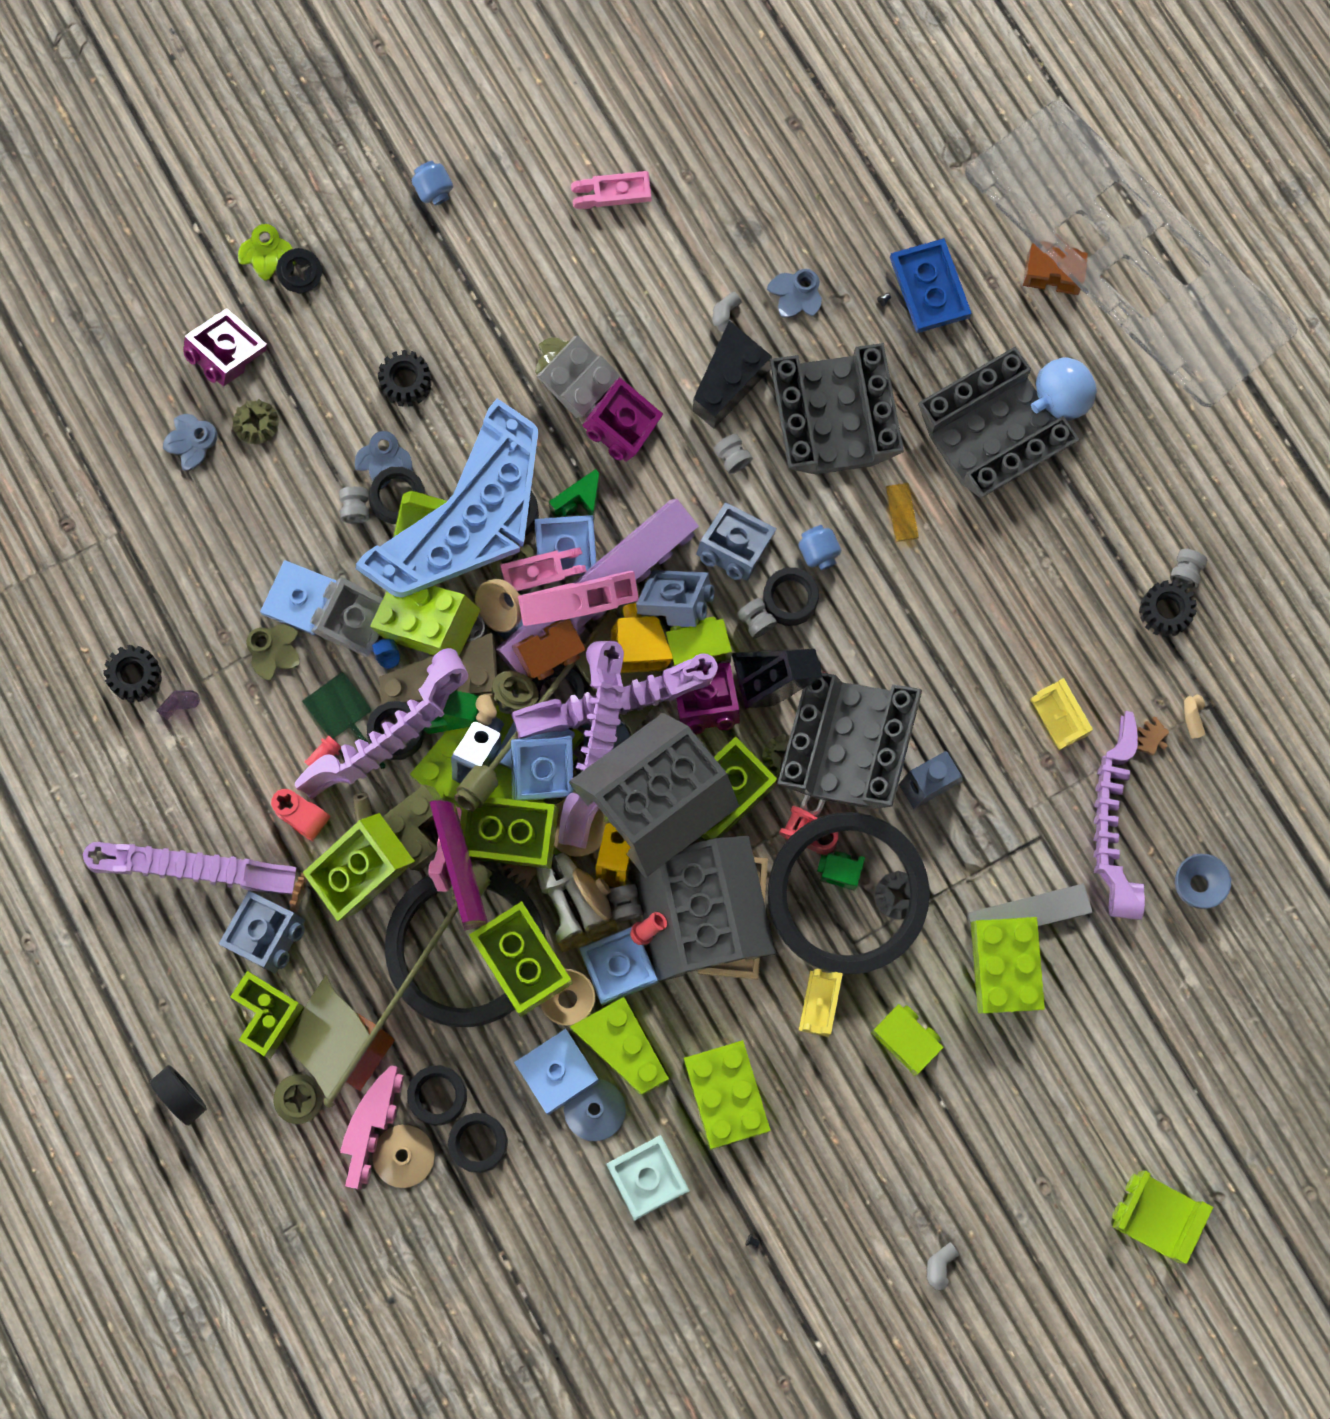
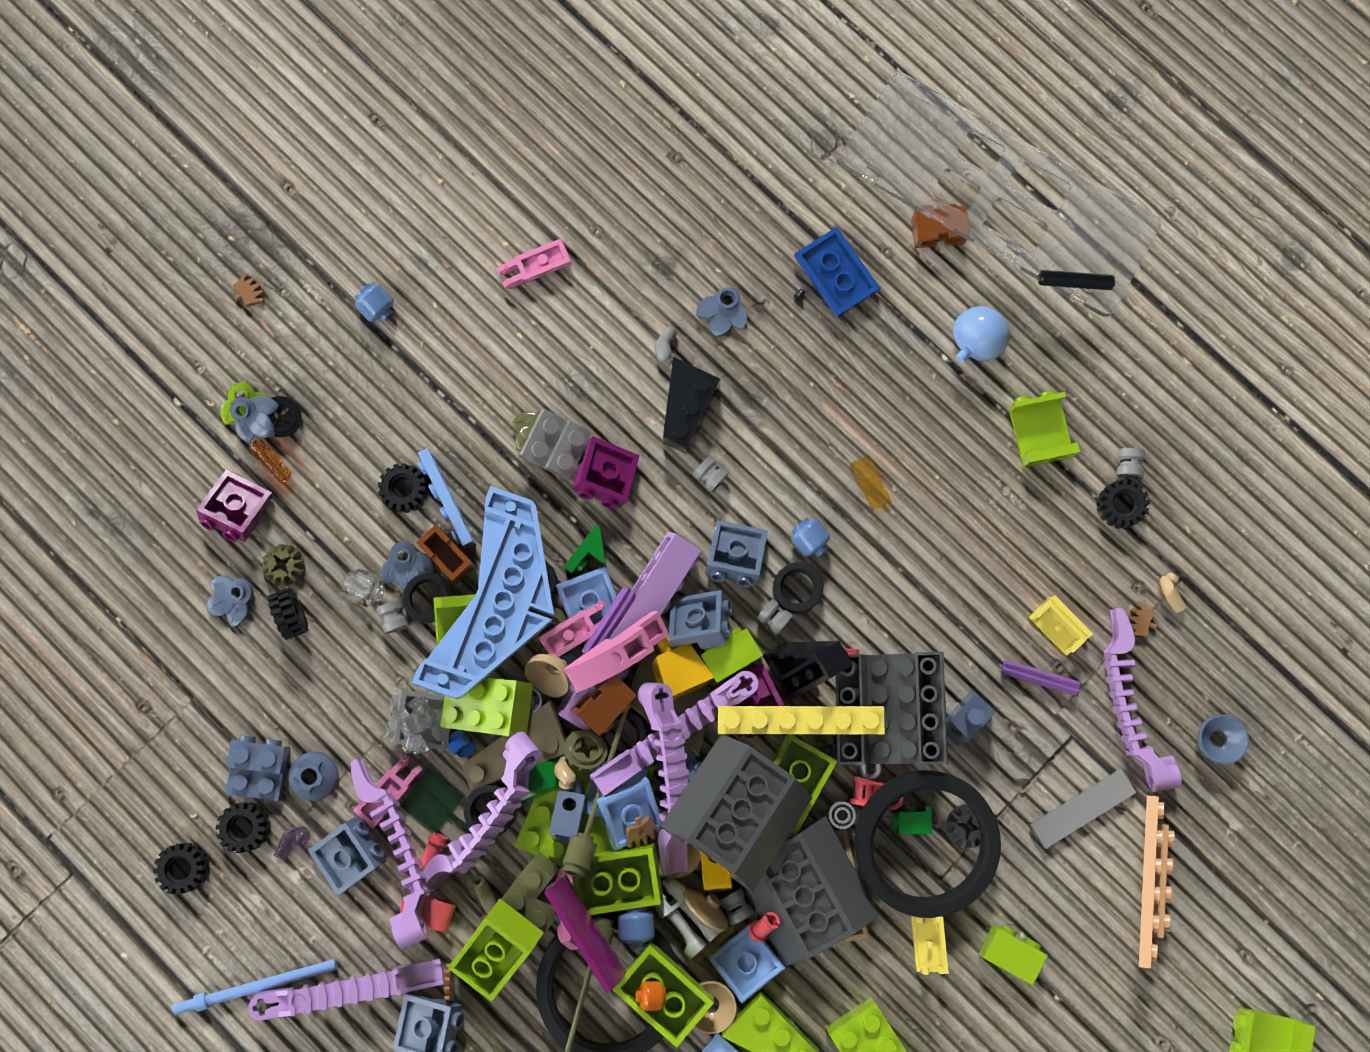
camera: 15 degrees left, 5 degrees up
(37, 838) = (203, 1001): none -> light blue bar
(49, 680) = (165, 864): none -> black tyre
(165, 618) = (257, 768): none -> sand blue plate
(229, 655) = (326, 772): none -> sand blue piece
(232, 732) = (347, 855): none -> sand blue plate
(246, 468) = (288, 613): none -> black tyre
(274, 264) = (256, 417): none -> sand blue plate
(275, 312) = (270, 460): none -> clear orange axle
(276, 815) = (409, 925): none -> lavender piece
(277, 651) = (365, 752): olive plate -> none
(293, 681) = (391, 782): none -> bright pink hinge
(296, 596) = (366, 713): light blue plate -> none
(304, 137) = (248, 291): none -> medium nougat piece
(332, 466) = (363, 587): none -> clear head
(350, 612) = (418, 721): none -> clear animal
(429, 455) = (446, 554): none -> dark orange brick
(443, 390) = (441, 490): none -> light blue plate
(507, 952) = (651, 996): none -> orange piece
(513, 884) = (636, 927): none -> medium blue head
(547, 788) = (640, 831): none -> medium nougat piece
(585, 564) = (610, 619): none -> medium lavender axle
(751, 722) = (801, 720): none -> light yellow plate
(764, 846) = (838, 811): none -> light grey wheel
(837, 411) = (790, 409): dark grey slope -> none
(988, 425) = (927, 388): dark grey slope -> none
(1007, 965) = (1080, 864): lime brick -> none
(1024, 764) = (1040, 677): none -> medium lavender axle
(1082, 1003) = (1155, 891): none -> light nougat plate
(1103, 507) = (1041, 429): none -> lime panel
(1182, 358) = (1076, 280): none -> black axle

